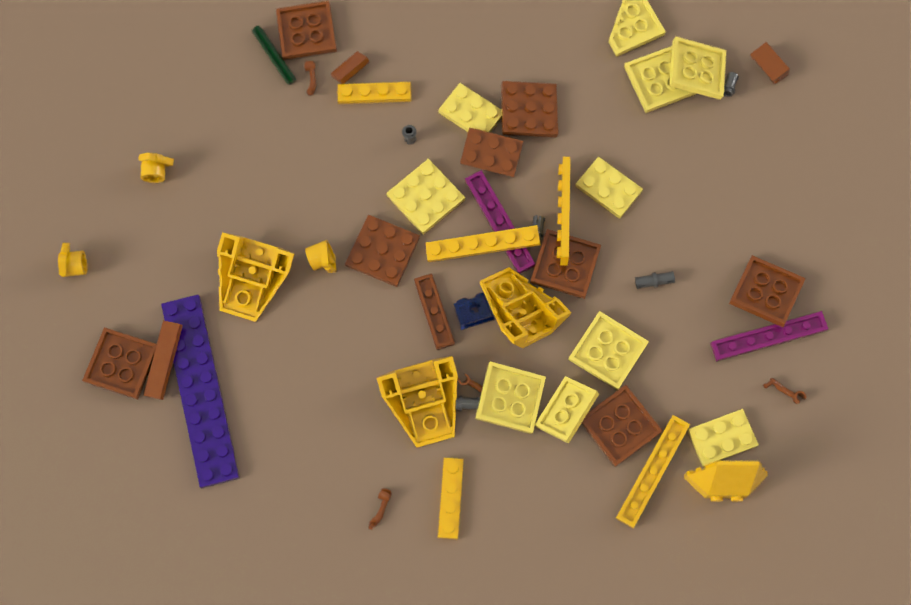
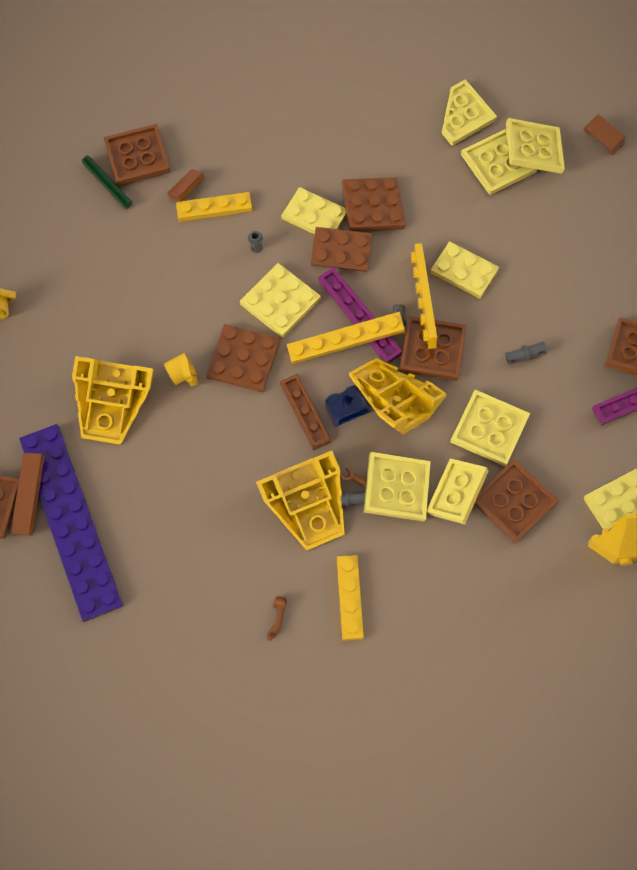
camera: 10 degrees left, 5 degrees down
(310, 66) = (145, 189): dark orange piece -> none
(652, 471) = (555, 543): yellow plate -> none
(730, 83) = (569, 155): dark grey pin -> none

